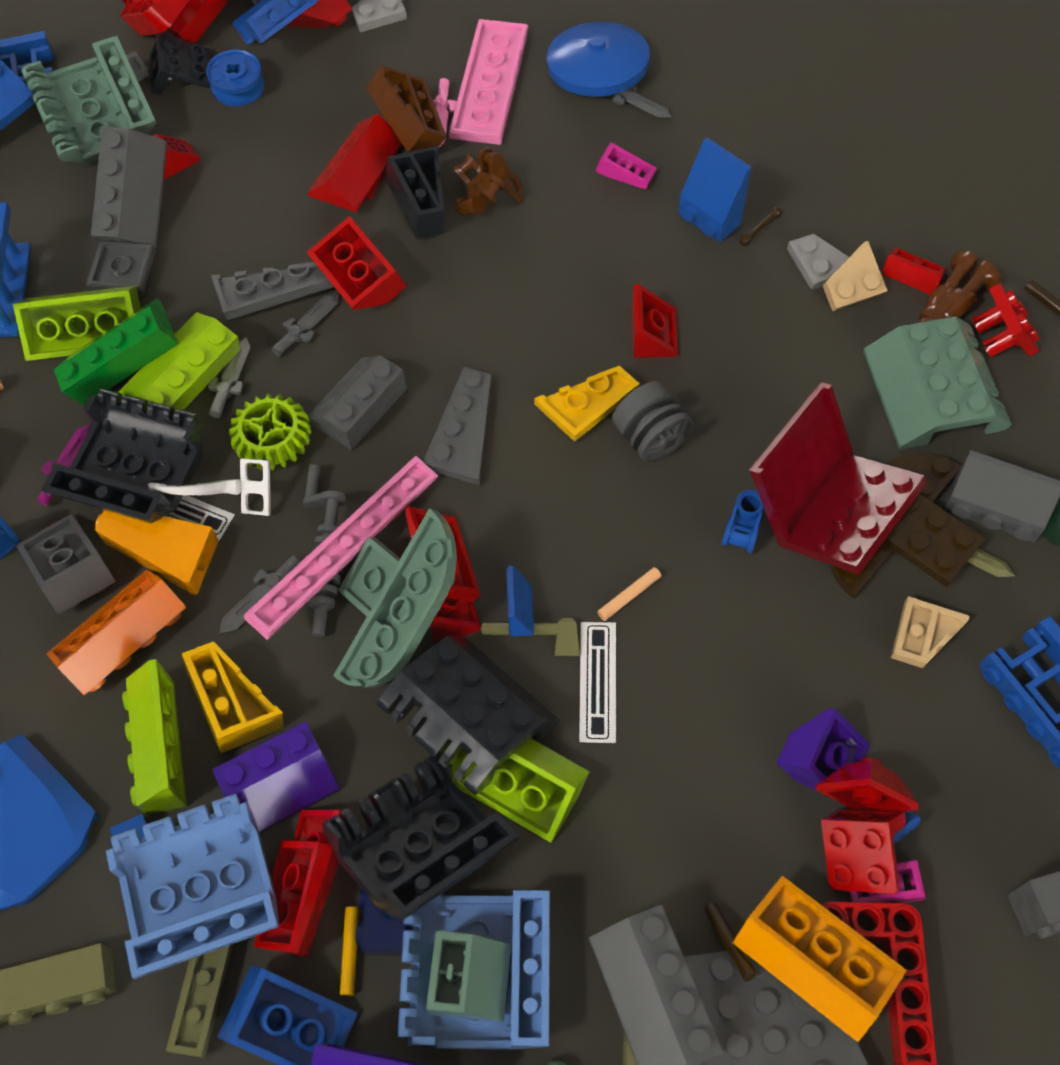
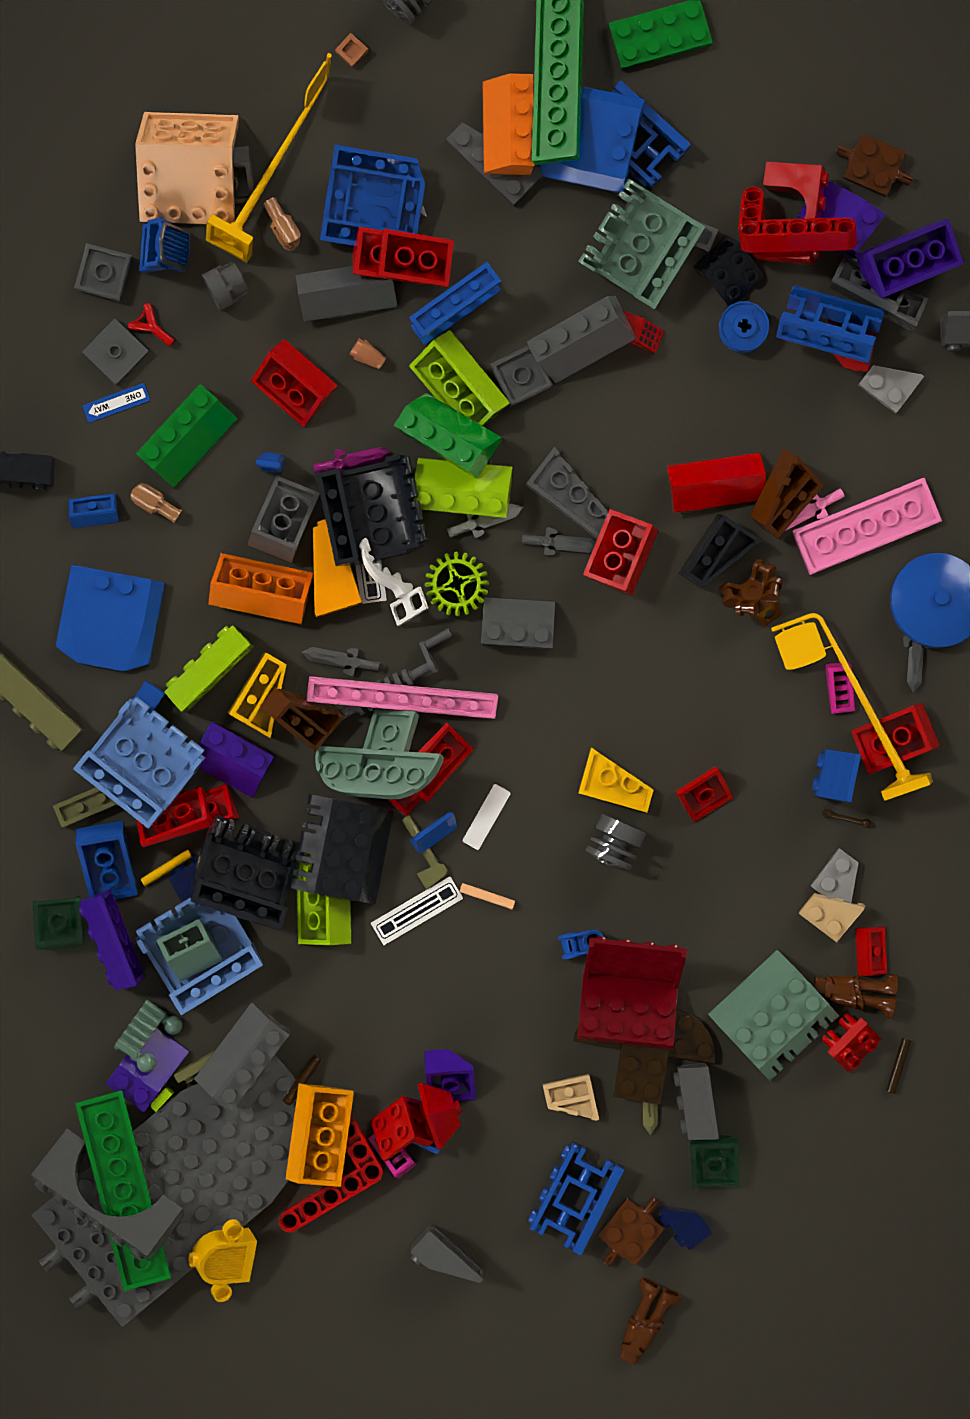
camera: 60 degrees right, 25 degrees up
(283, 660) = (305, 720): none -> reddish brown wedge
(462, 429) = (536, 712): dark grey wing -> none
(539, 547) = (486, 816): none -> white sticker
(565, 172) = (803, 646): none -> yellow piece
(701, 121) = (908, 732): none -> red slope

